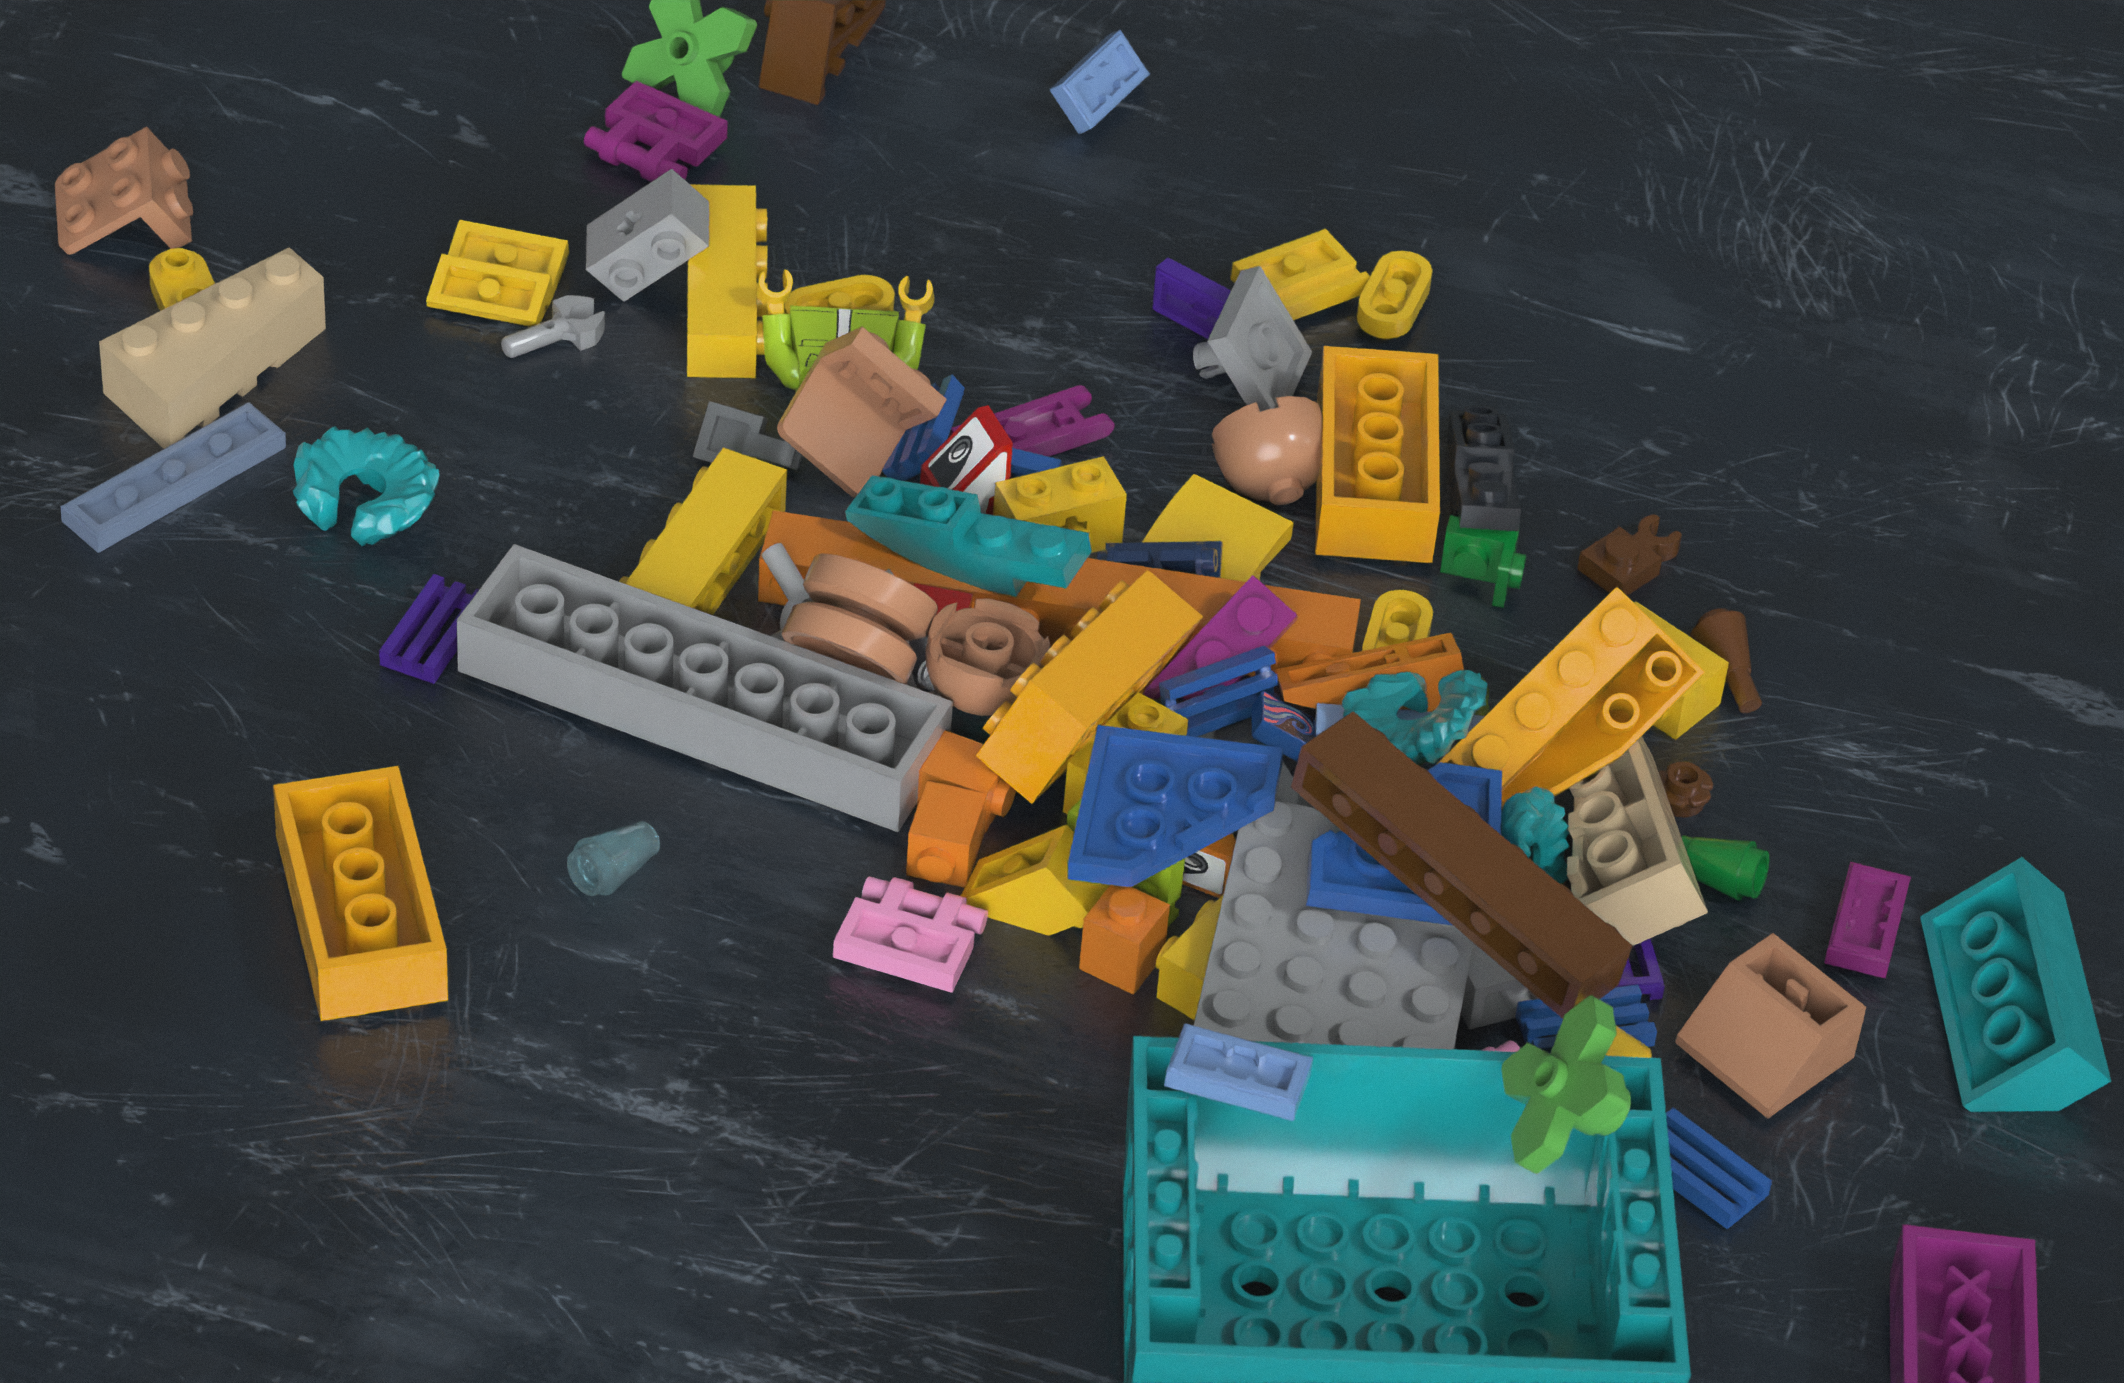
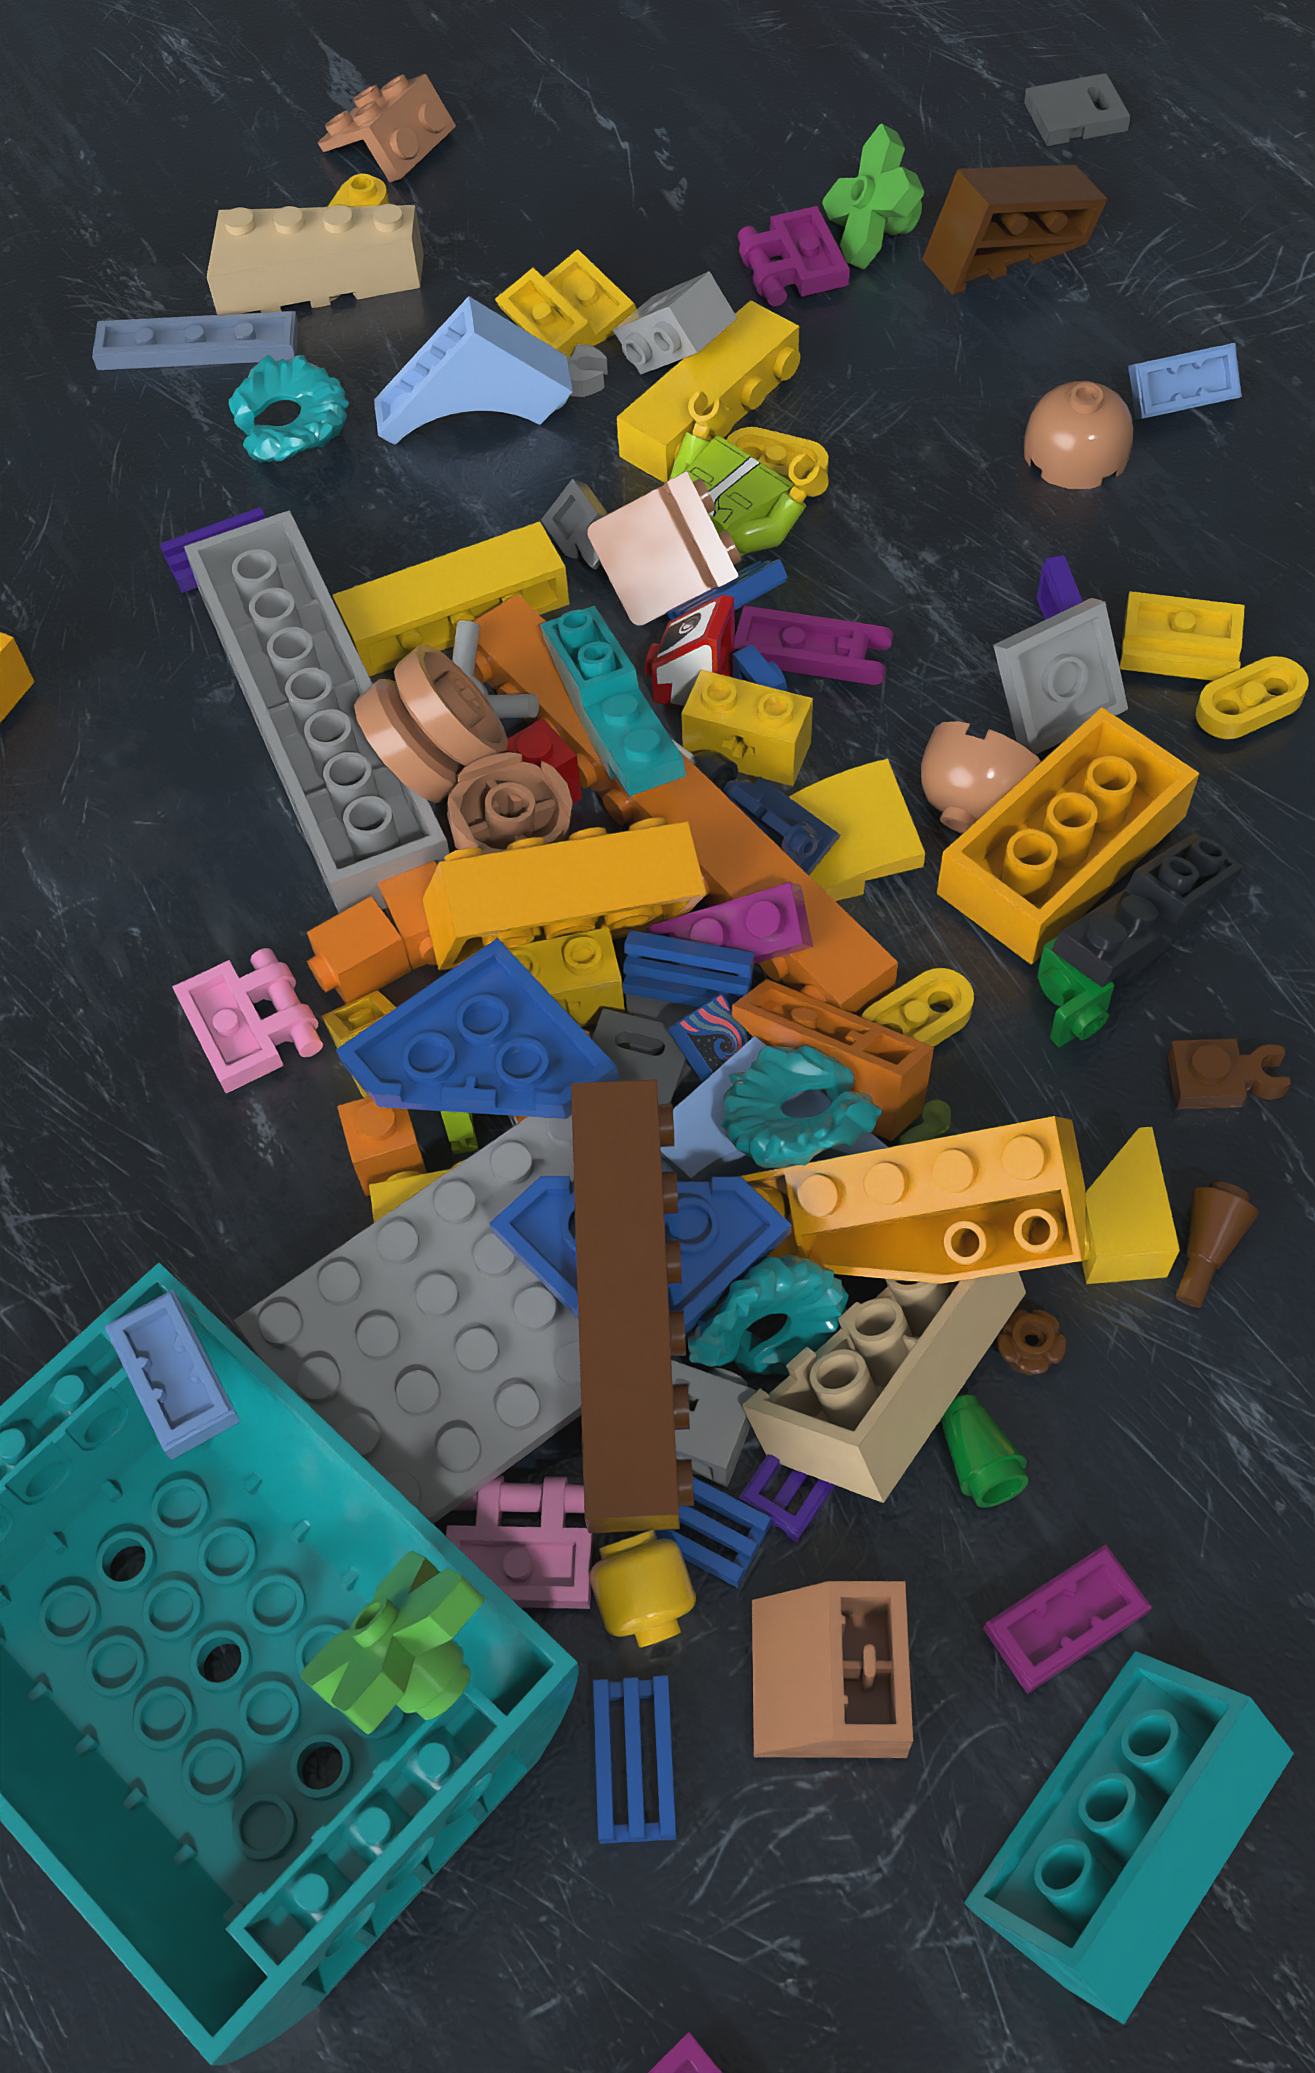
camera: 50 degrees right, 15 degrees up
(512, 359) = (474, 366): none -> light blue arch
(610, 858) = (117, 807): clear light blue cone -> none
(1060, 165) = (1079, 435): none -> nougat cylinder

